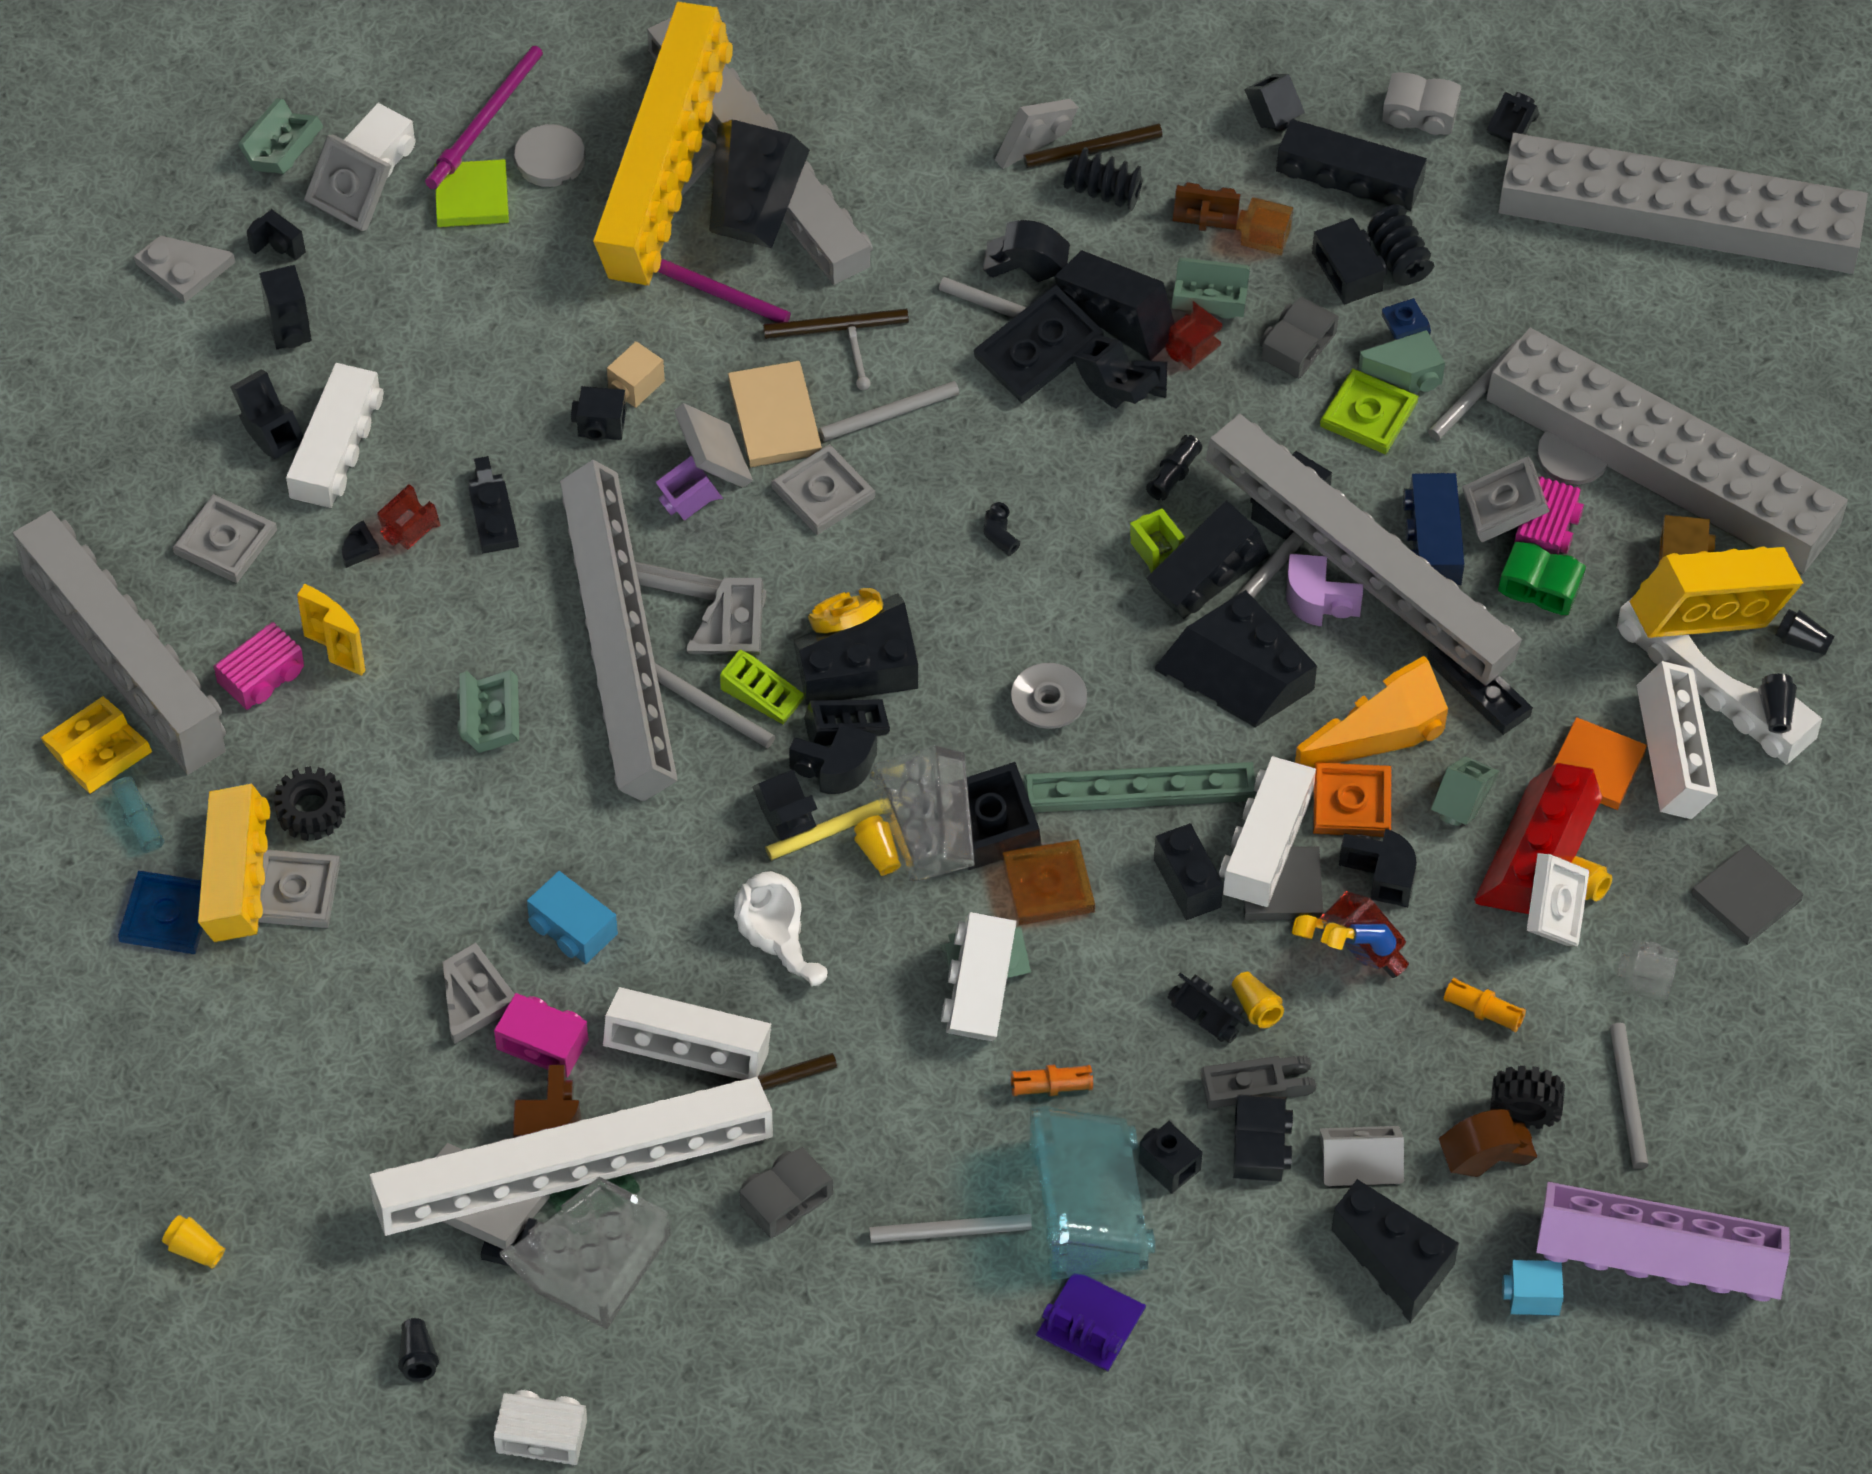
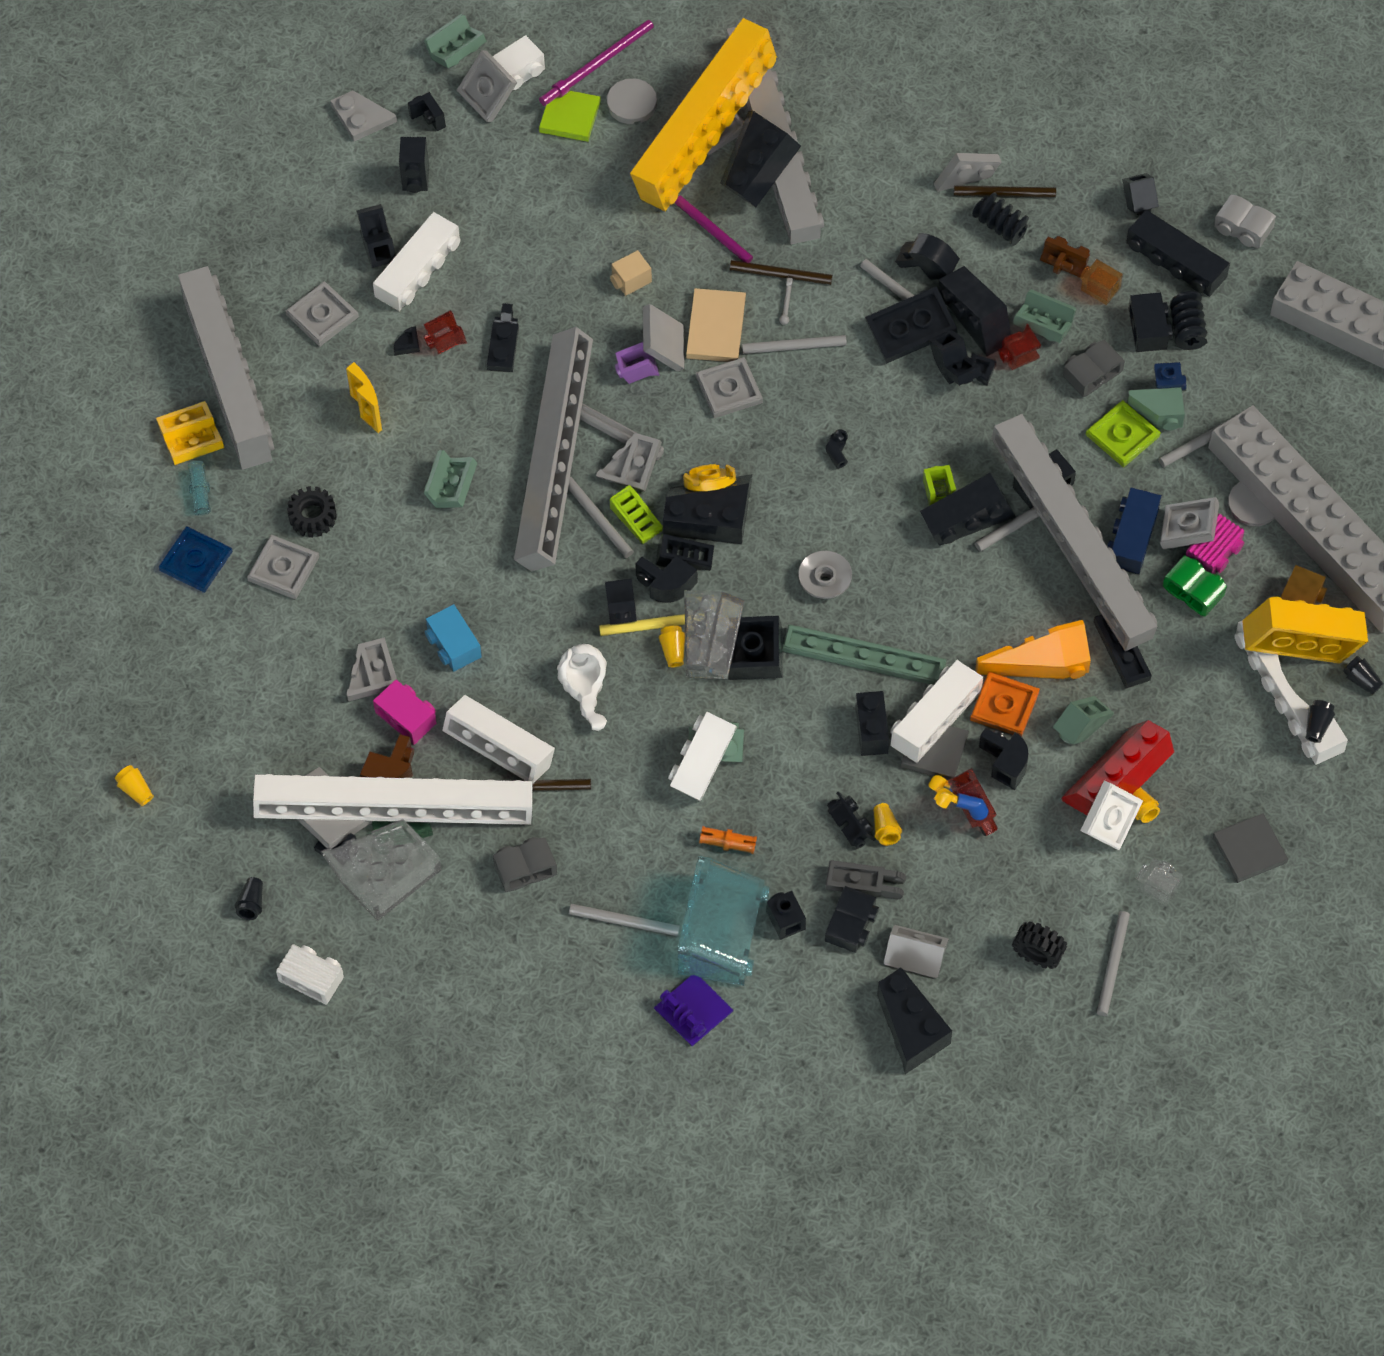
camera: 20 degrees right, 5 degrees up
(233, 862) = (247, 538): yellow brick -> none
(259, 666) = (312, 408): dark pink brick -> none
(600, 413) = (598, 294): black brick -> none
(1048, 882) = (776, 703): clear orange plate -> none
(1174, 467) = (971, 437): black pin -> none
(1241, 661) = (963, 587): black wedge -> none
(1313, 596) = (1032, 555): lavender brick -> none
(1484, 1004) = (1038, 872): light orange pin -> none
(1485, 1140) = (999, 966): reddish brown brick -> none
(1513, 116) = (1305, 247): black bracket -> none
(1534, 1287) = (995, 1075): medium azure brick -> none
(1608, 754) = (1187, 724): orange tile -> none
(1663, 1241) = (1091, 1070): lavender brick -> none
(1676, 740) = (1241, 726): white brick -> none

